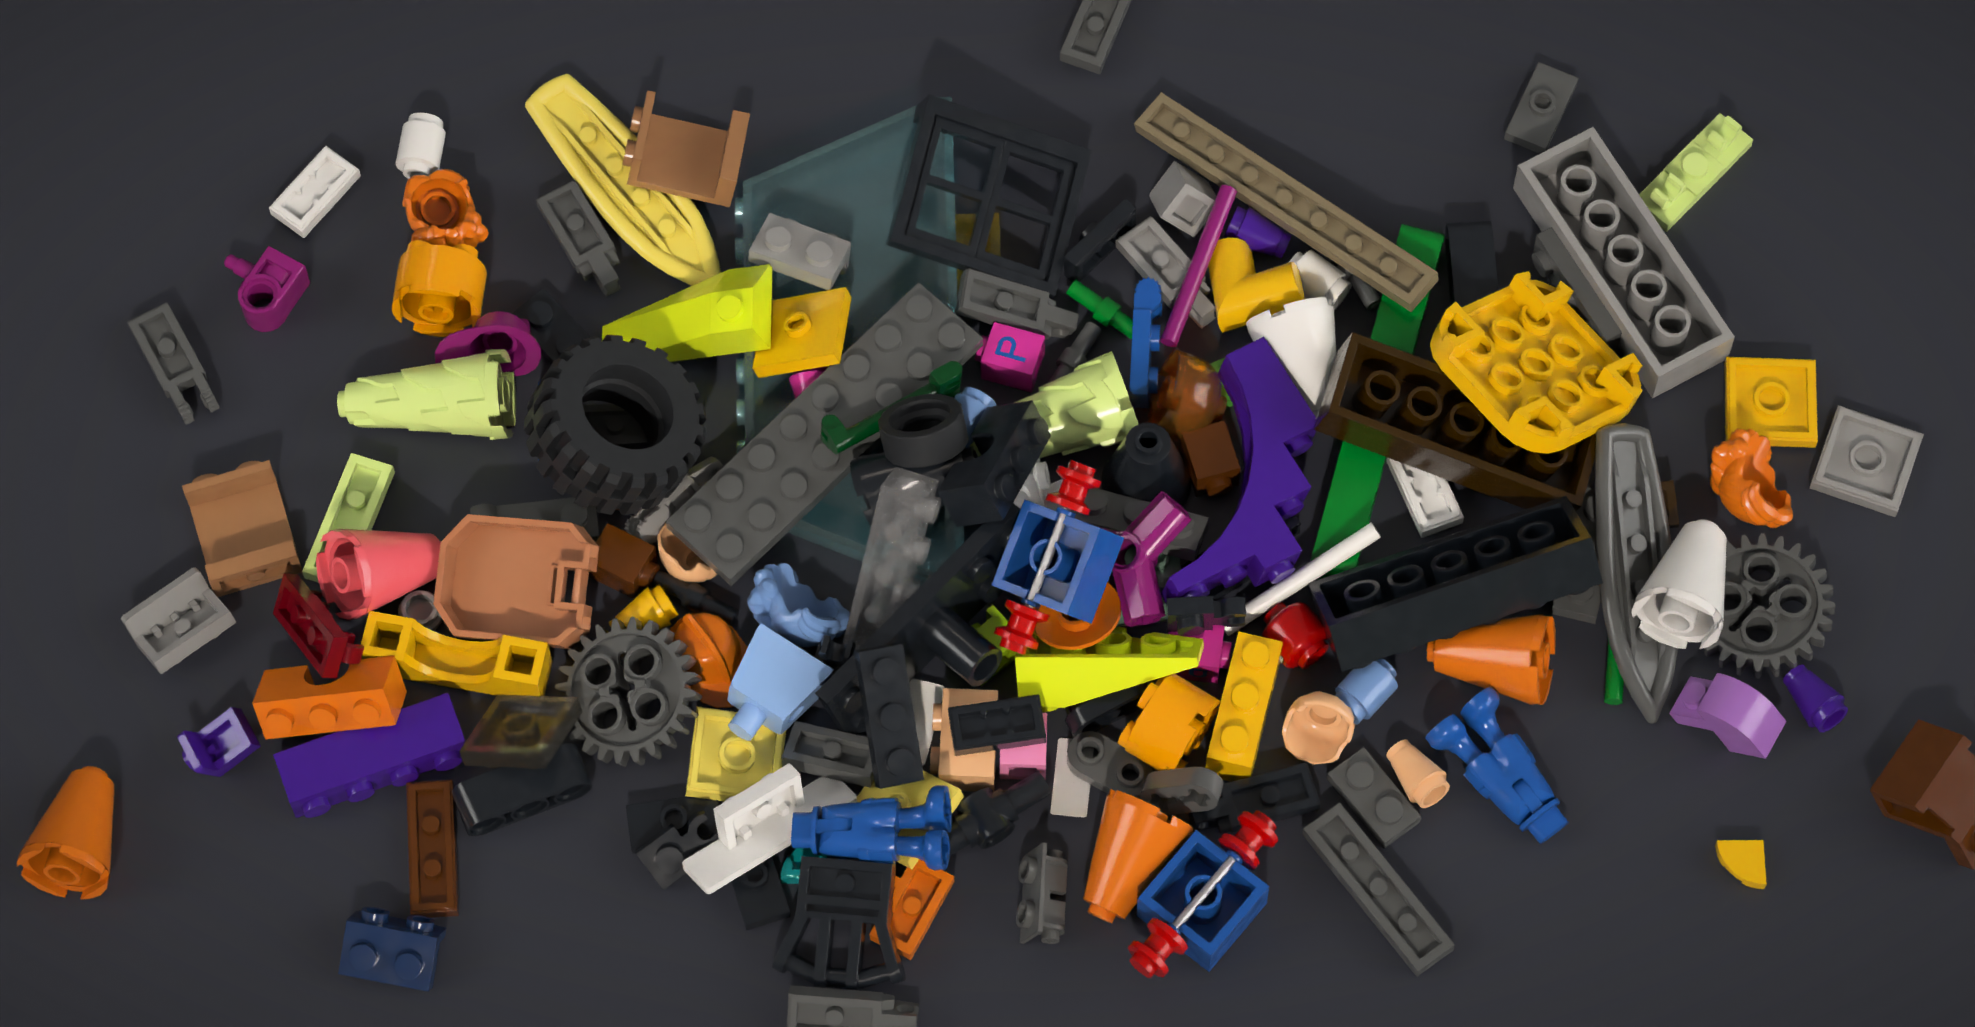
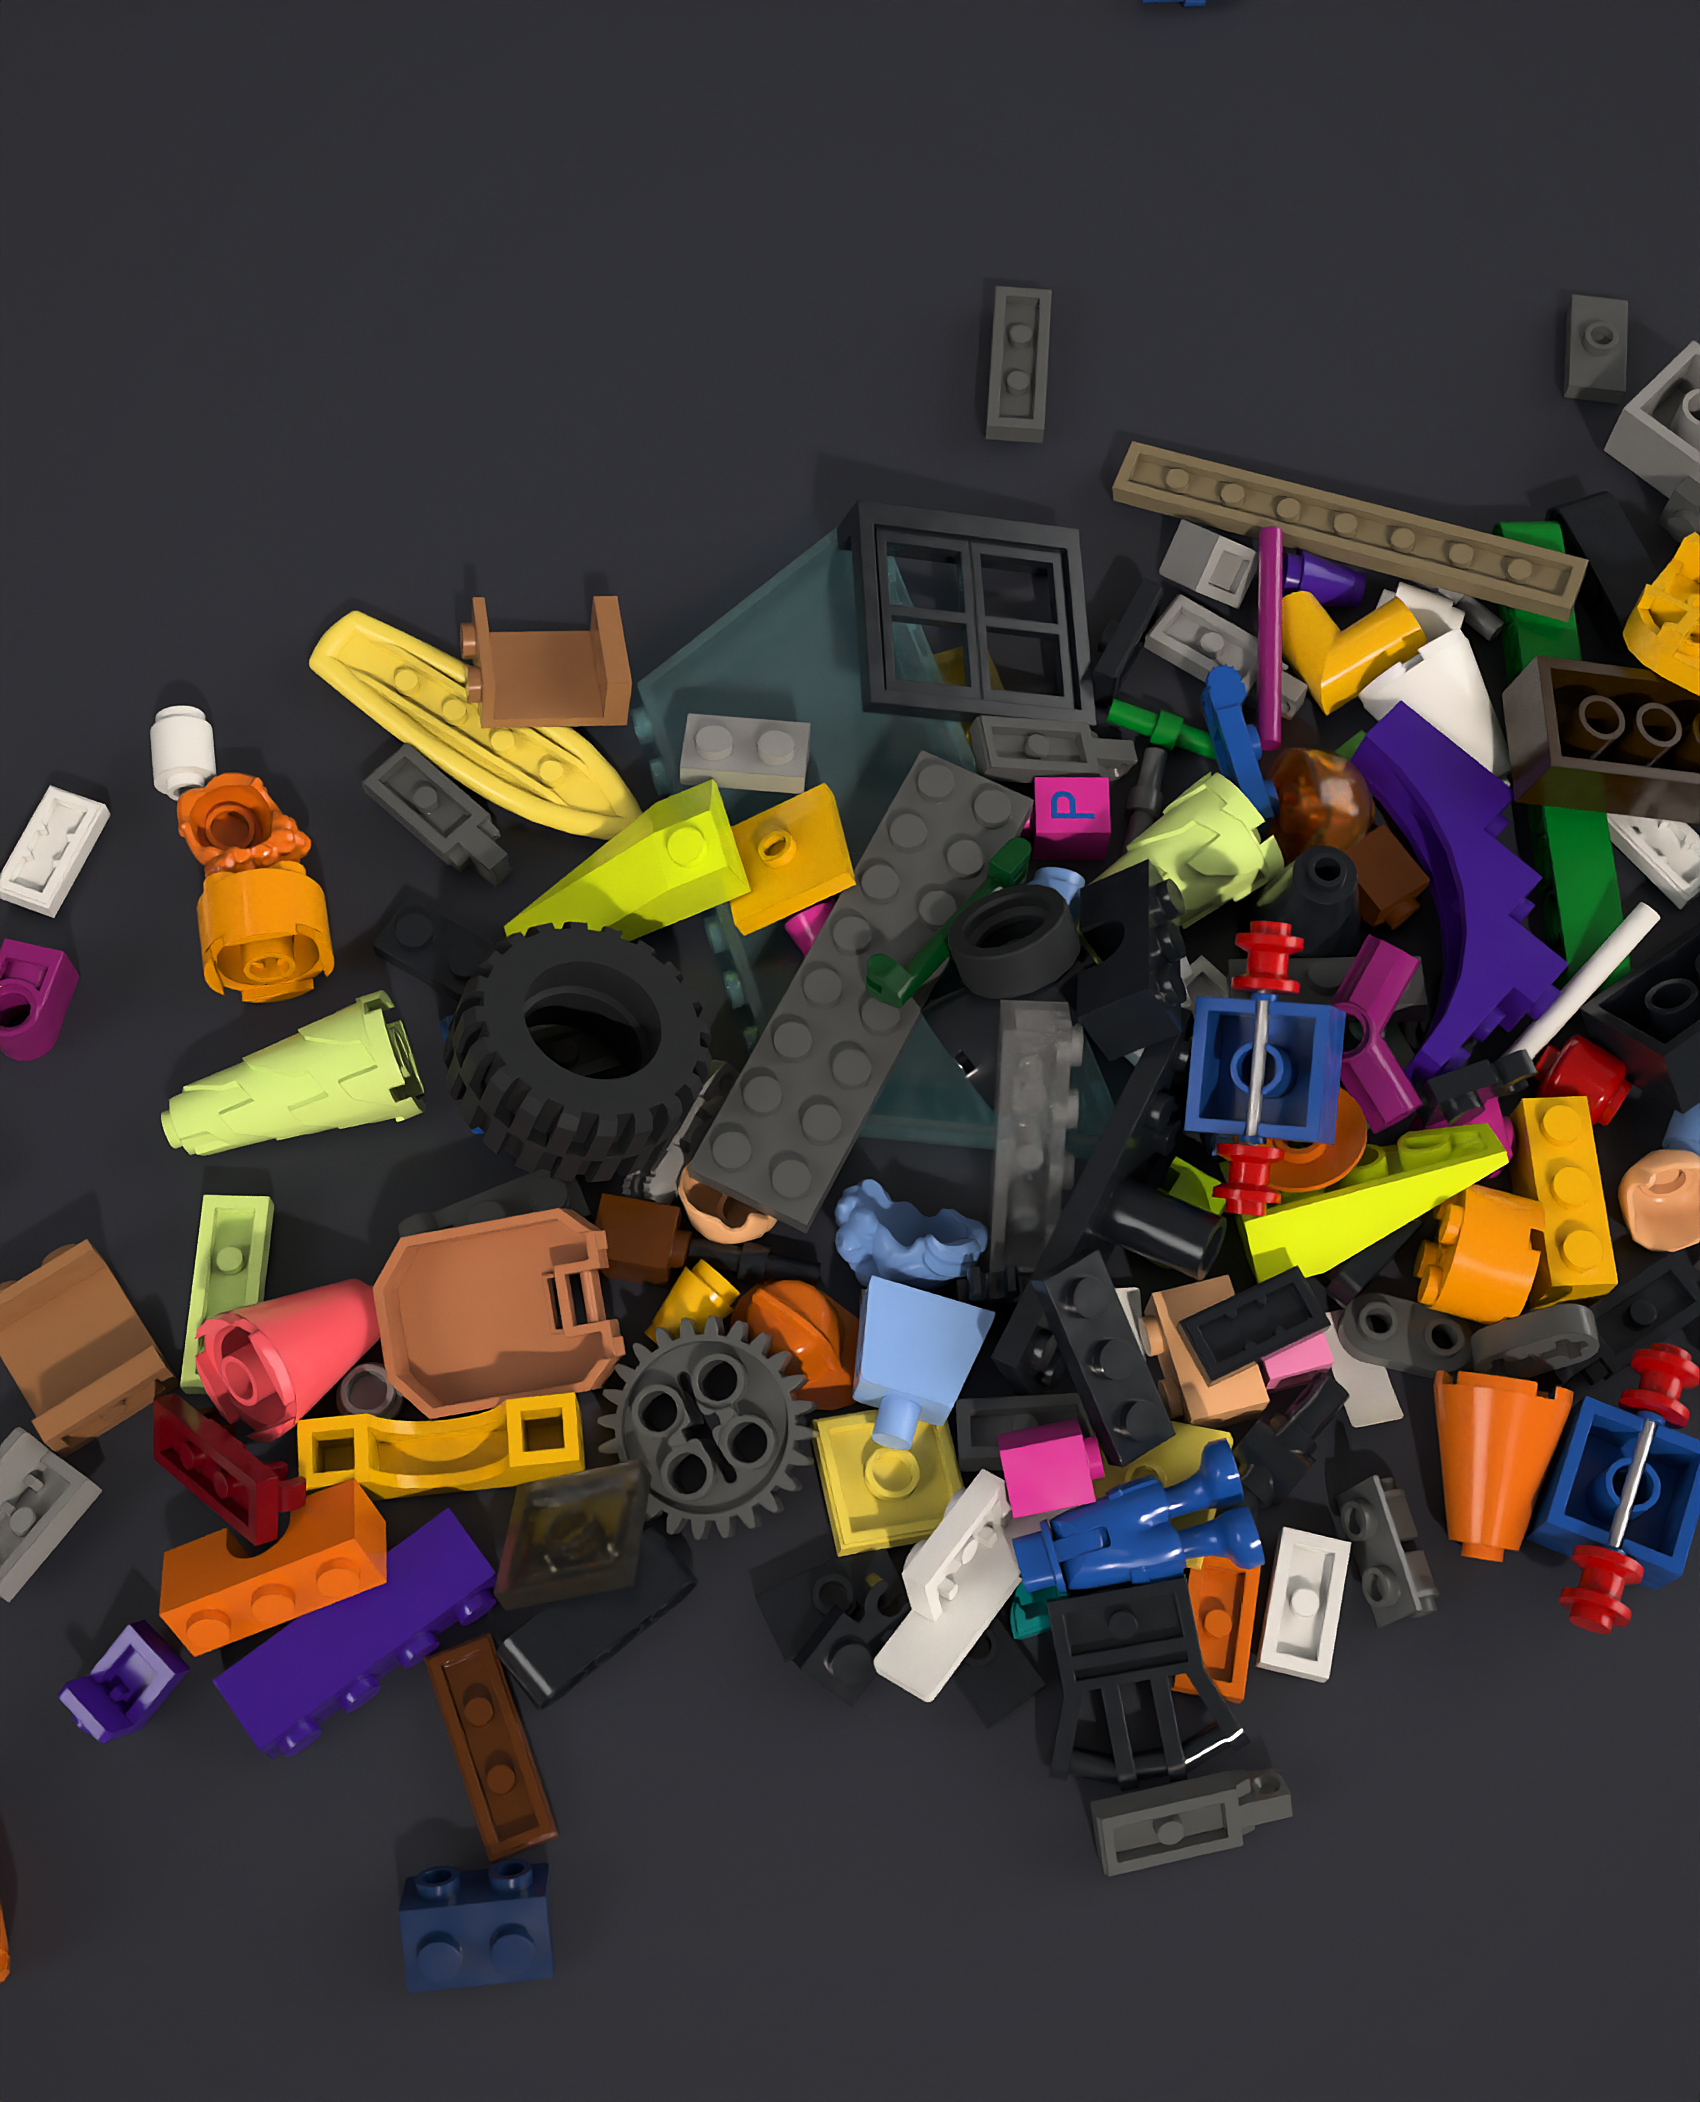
camera: 20 degrees left, 0 degrees up
(491, 332) = (359, 971): magenta piece -> none
(832, 775) = (1049, 1467): none -> dark pink brick
(973, 911) = (1303, 1604): none -> white plate

